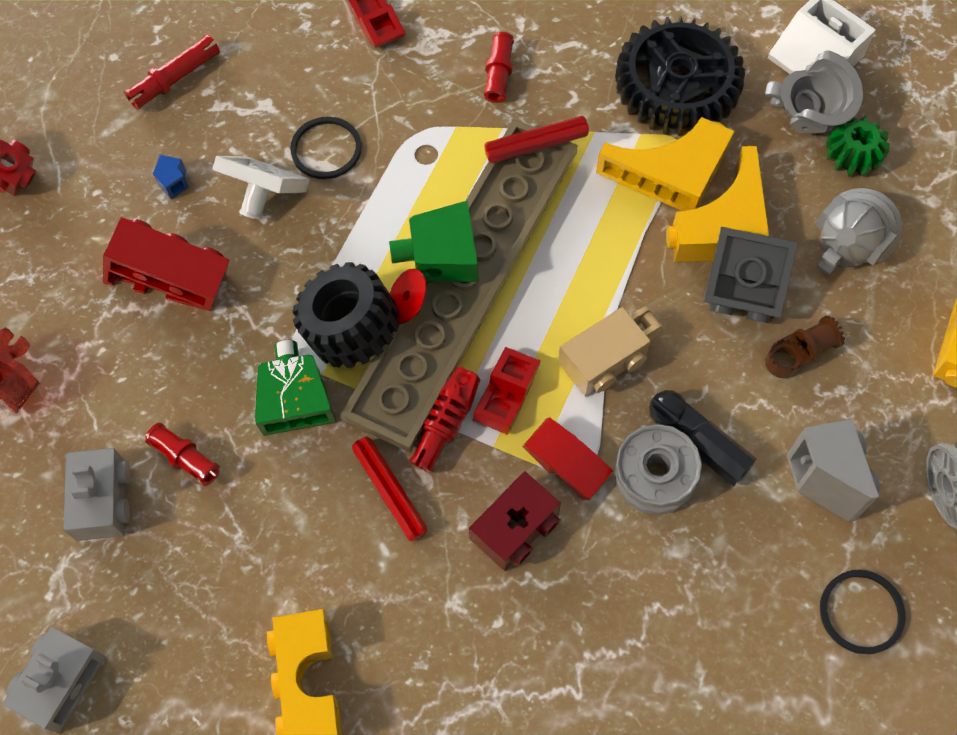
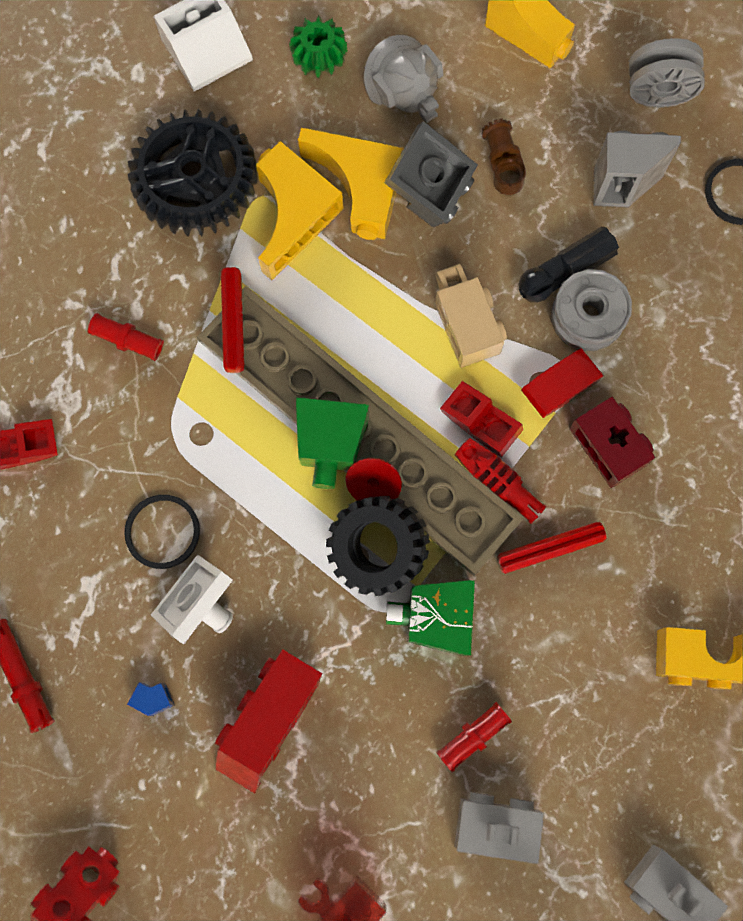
camera: 75 degrees left, 10 degrees up
(820, 95) = (264, 56): light grey helmet -> none

